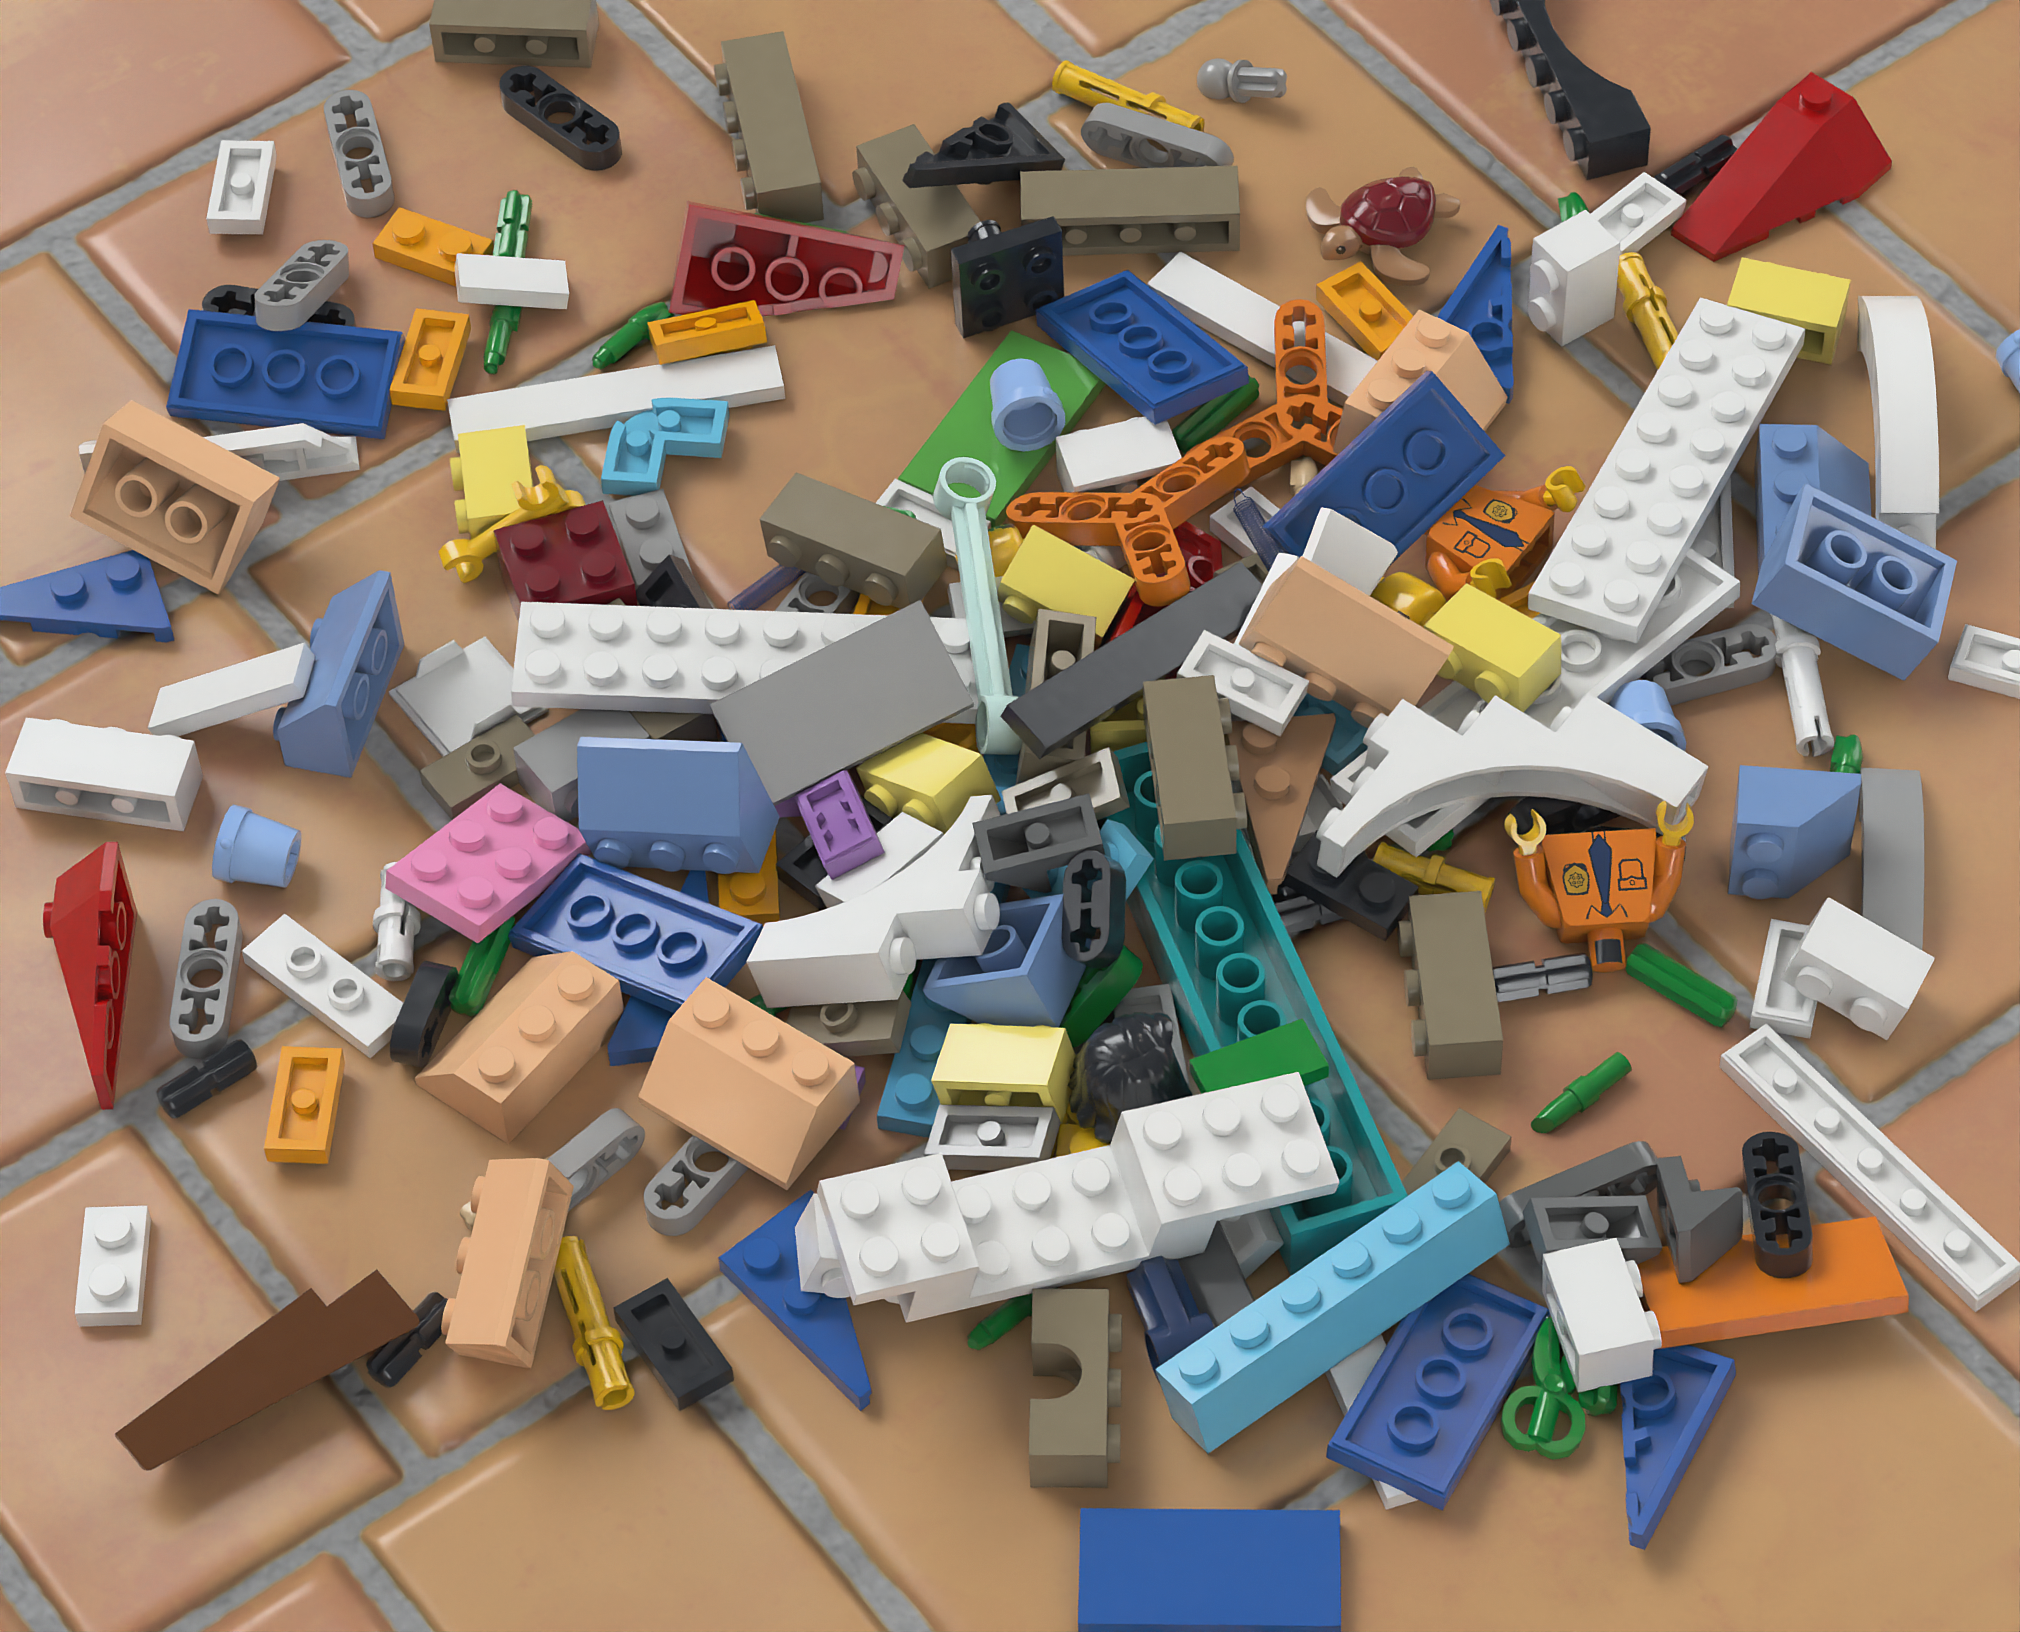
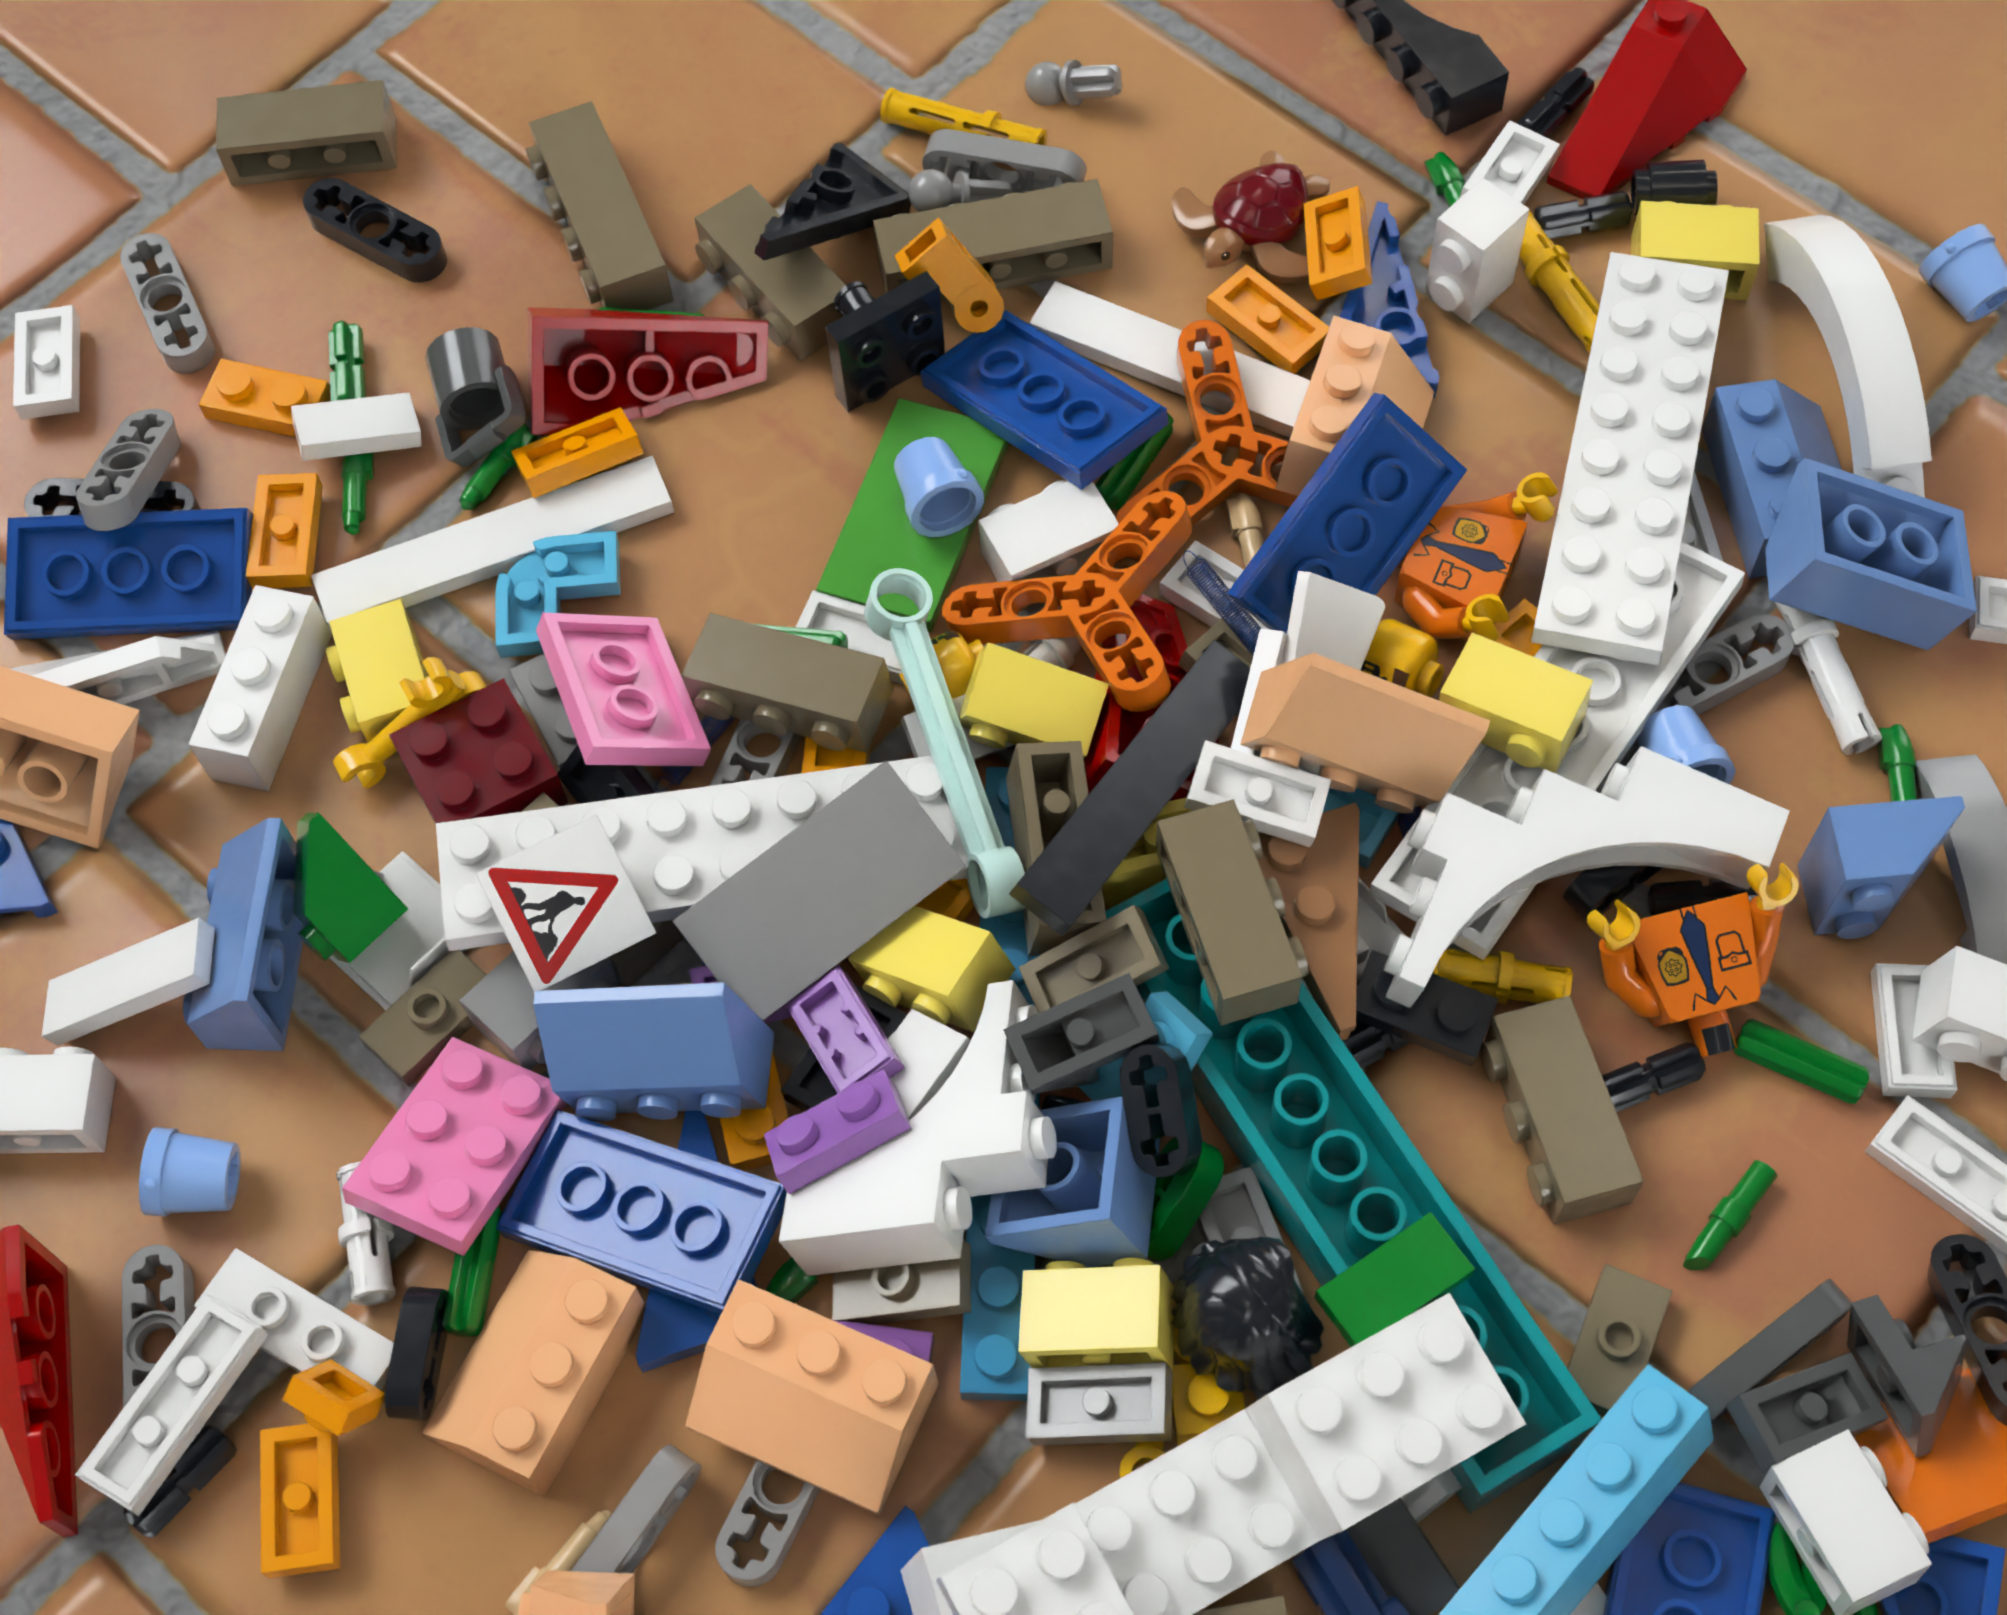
camera: 10 degrees left, 10 degrees up
(213, 1014) = (172, 1405): none -> white tile
(348, 1027) = (333, 1398): none -> light orange plate
(386, 482) = (261, 688): none -> white brick
(425, 647) = (338, 893): none -> green slope
(621, 675) = (565, 903): none -> white piece
(623, 267) = (473, 393): none -> dark grey piece
(705, 528) = (622, 690): none -> bright pink plate
(800, 892) = (836, 1131): none -> medium lavender plate
(1085, 229) = (959, 275): none -> light orange leg
(1086, 154) = (934, 189): none -> light grey axle
(1448, 254) = (1337, 243): none -> light orange plate
(1679, 266) = (1595, 214): none -> black piece
(1786, 248) = (1675, 182): none -> black brick

